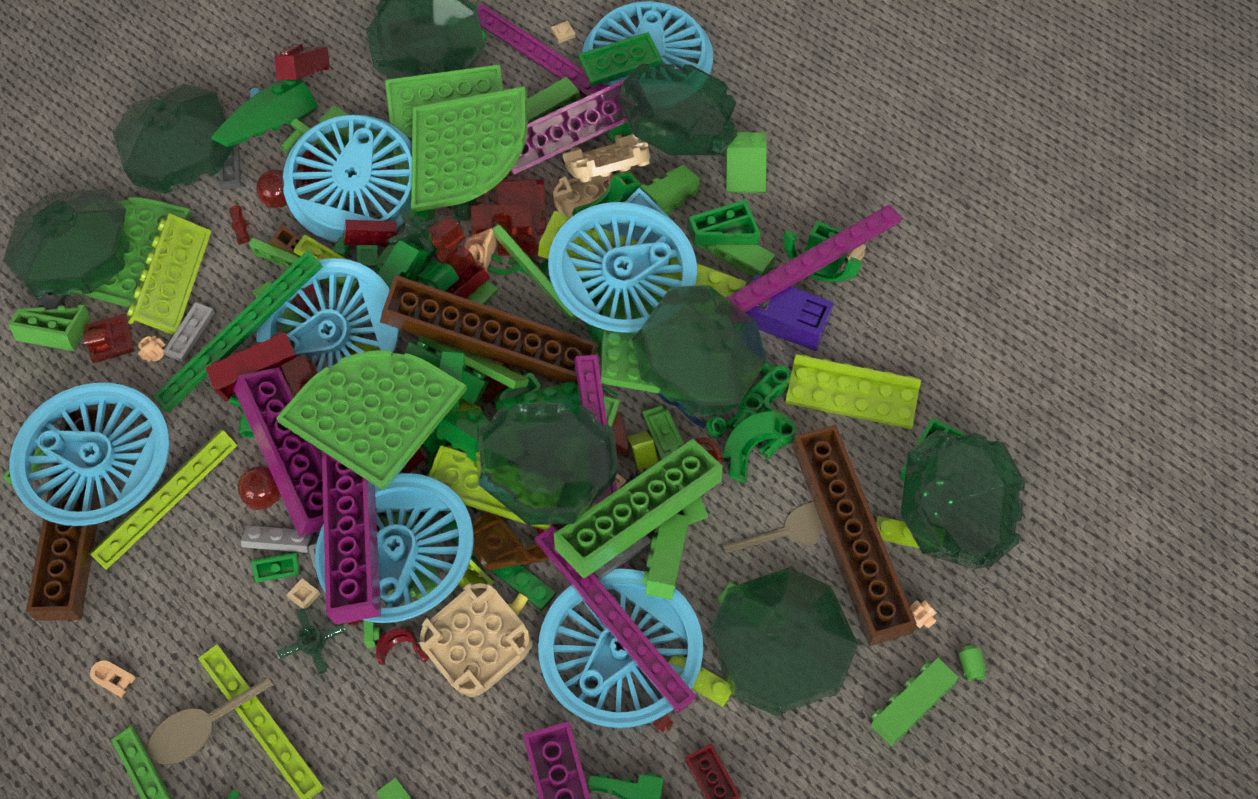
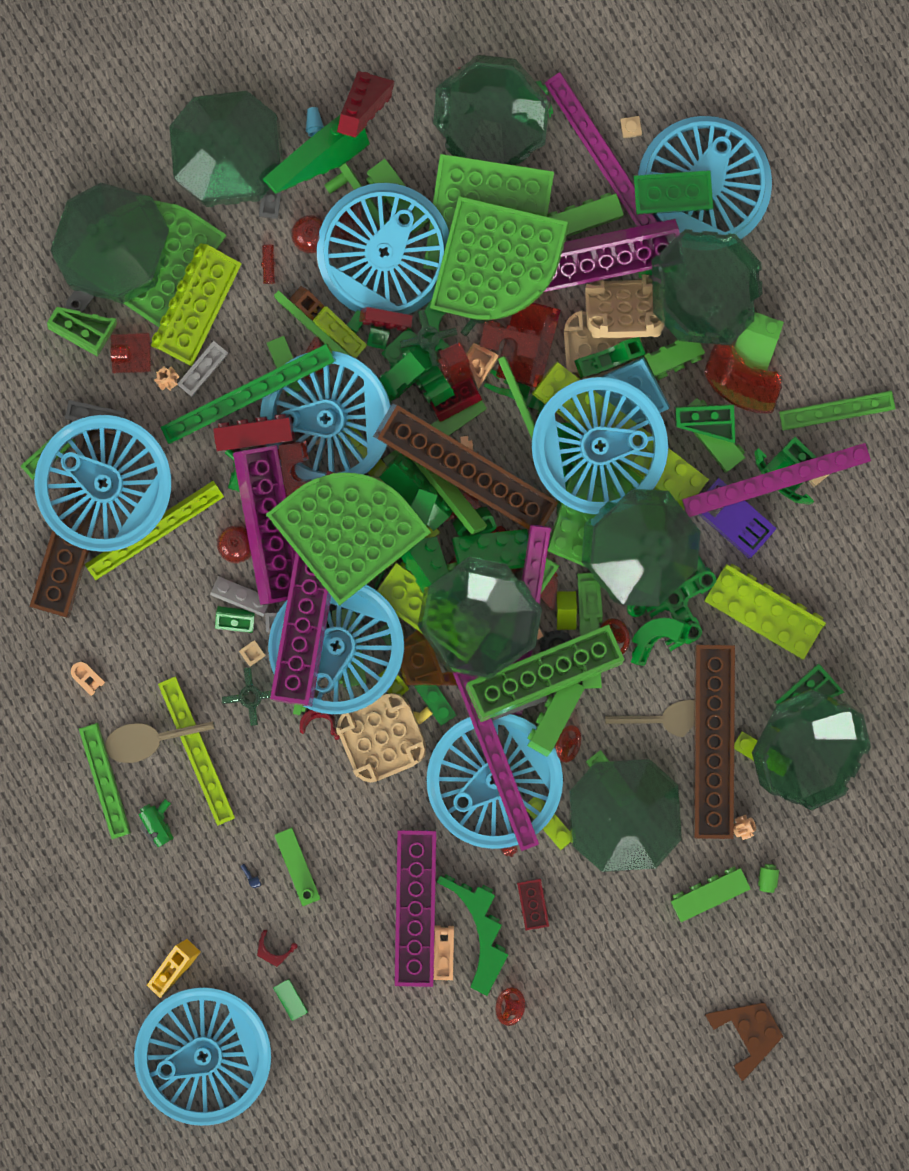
camera: 15 degrees right, 25 degrees up
(687, 583) = (565, 743): none -> clear red piece
(734, 188) = (739, 384): none -> clear red panel
(847, 199) = (837, 410): none -> bright green tile

